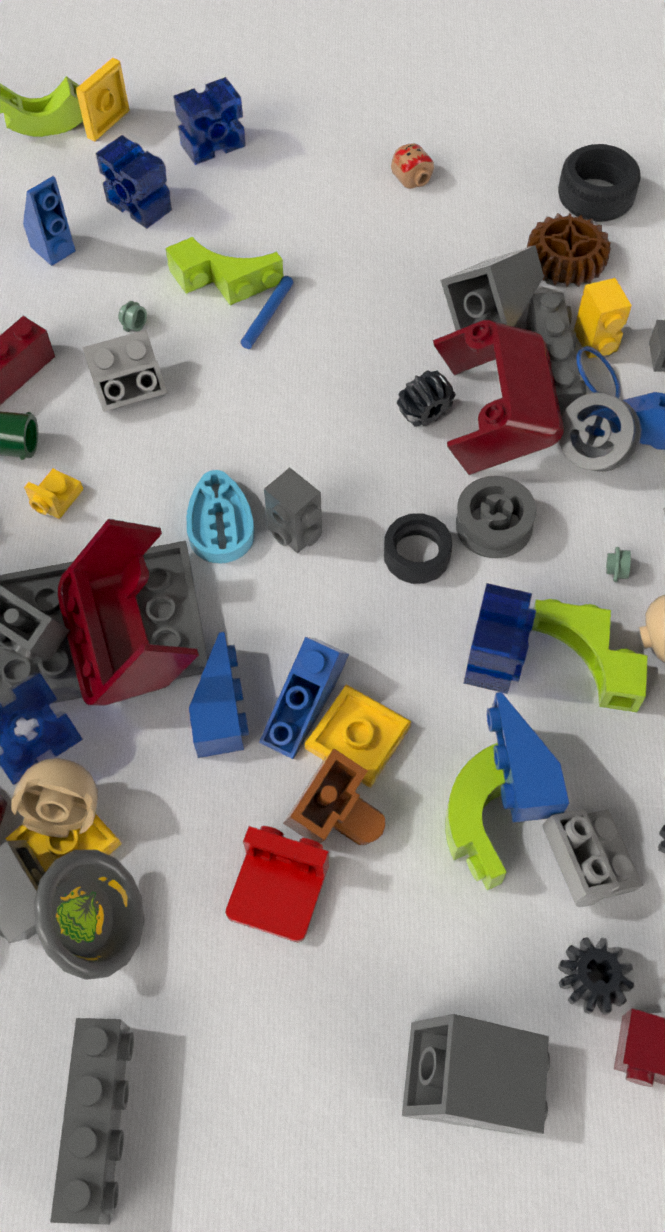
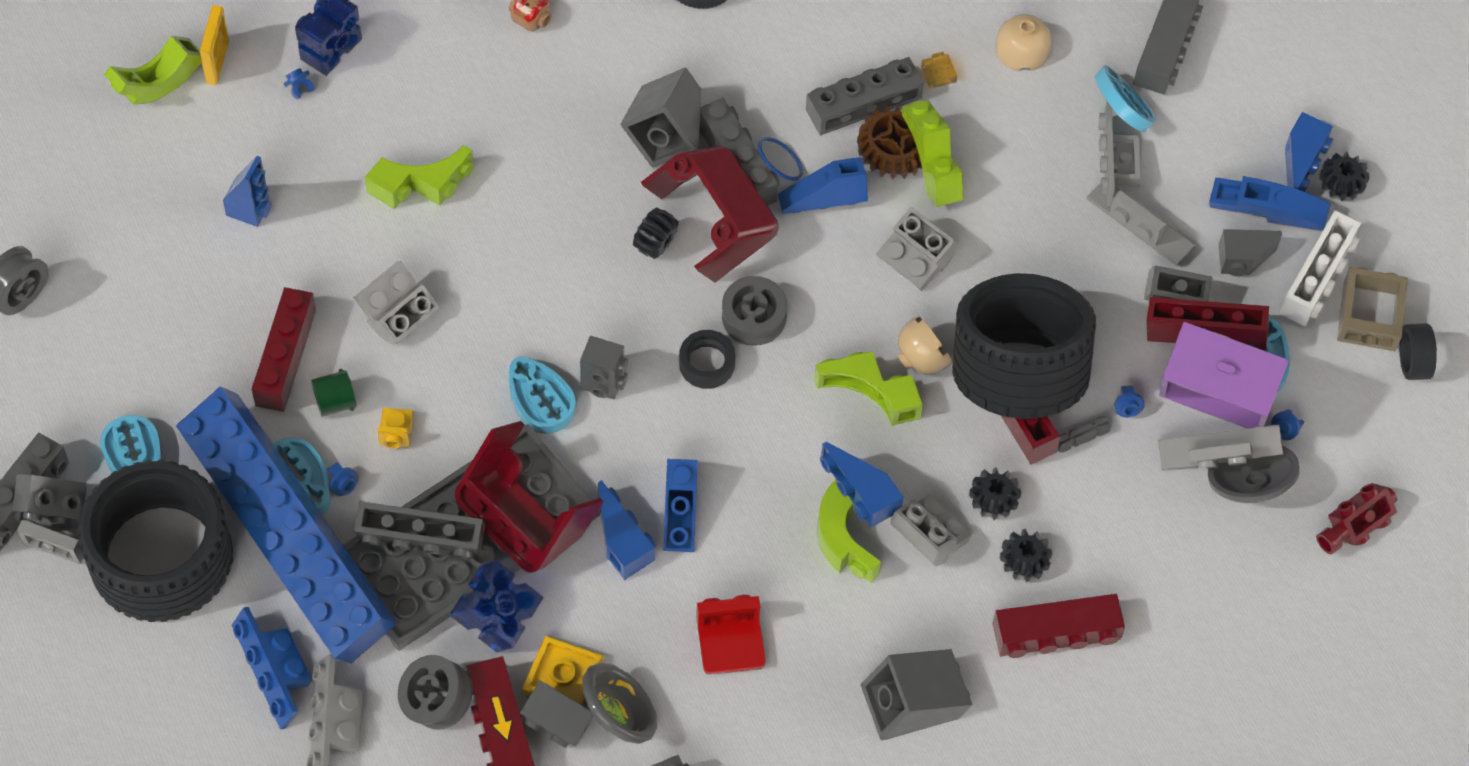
camera: 30 degrees left, 0 degrees up
(56, 797) = (551, 642): tan cylinder -> none
(132, 316) = (365, 249): sand green plate -> none
(134, 181) = (297, 121): clear blue brick -> none
(166, 153) = (298, 78): none -> blue plate
(266, 312) = (477, 201): blue bar -> none
(332, 803) = (741, 566): dark orange brick -> none
(360, 731) = (732, 516): yellow tile -> none
(500, 639) = (803, 405): clear blue brick -> none
(570, 249) = (710, 40): reddish brown gear -> none
(577, 424) = (827, 213): wheel -> none
(602, 316) = (763, 108): yellow brick -> none
(604, 991) = (953, 600): black gear -> none
(618, 564) = (861, 312): sand green plate -> none

